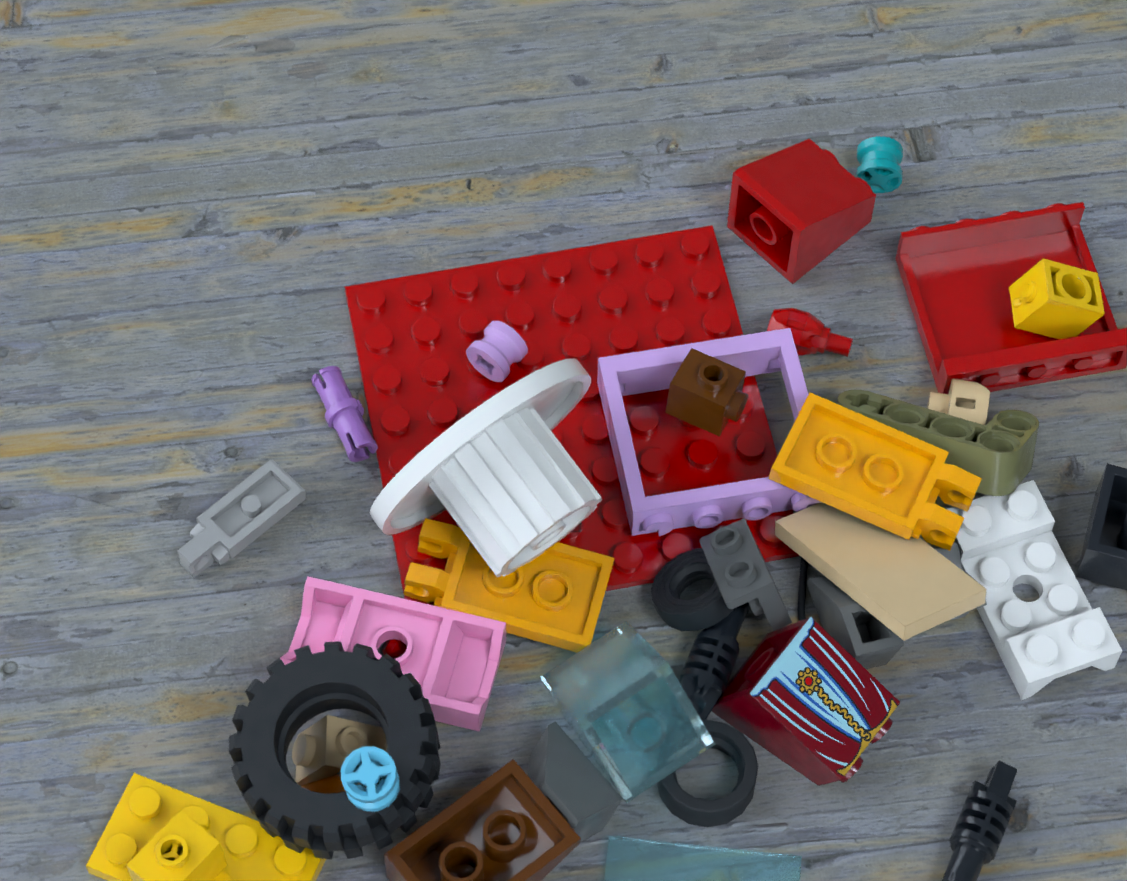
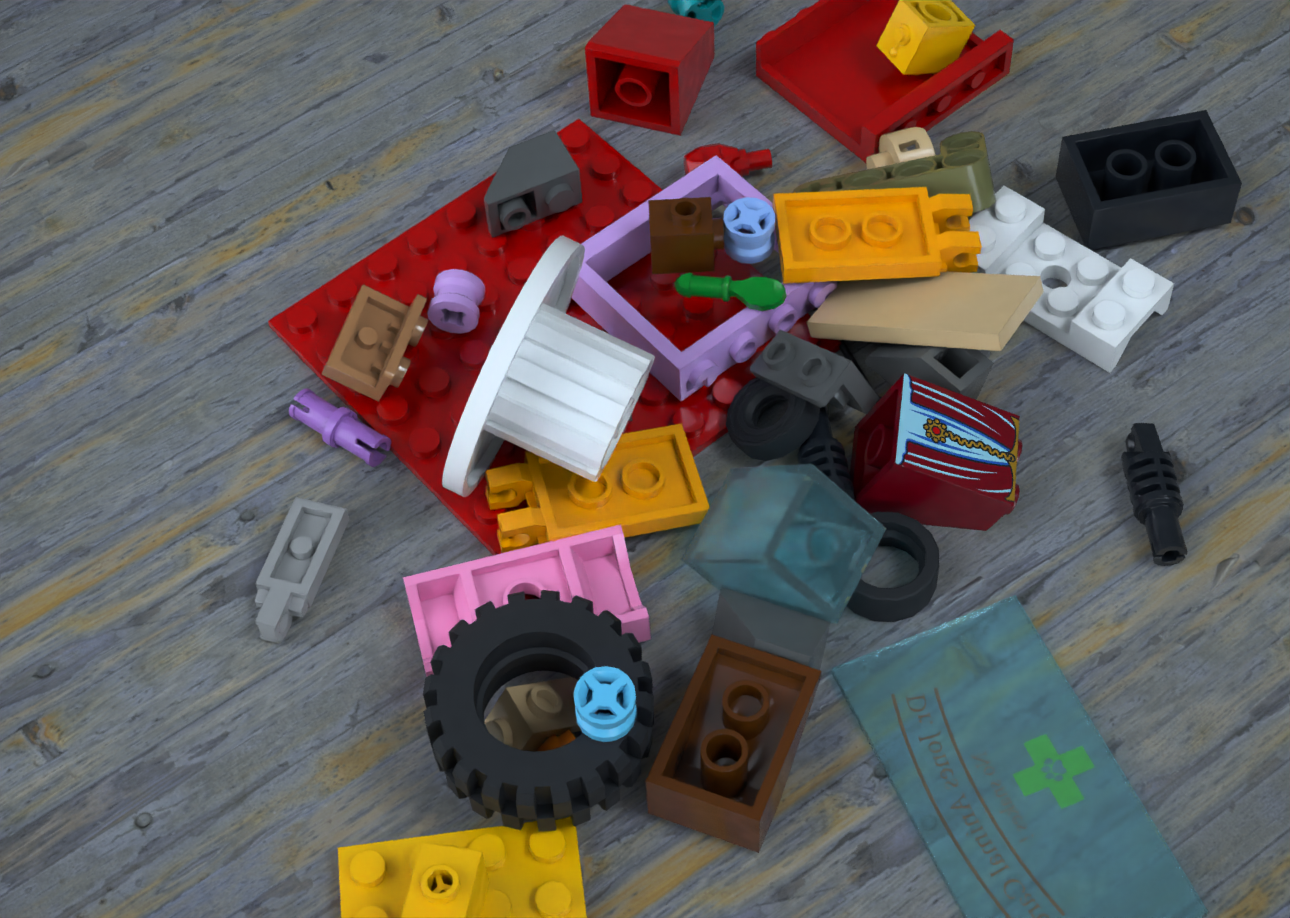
camera: 25 degrees left, 5 degrees down
(407, 353) = (373, 343): none -> medium nougat bracket
(622, 273) = (531, 184): none -> dark grey slope
(738, 475) = (754, 292): none -> green piece
(776, 407) = (757, 221): none -> light blue wheel

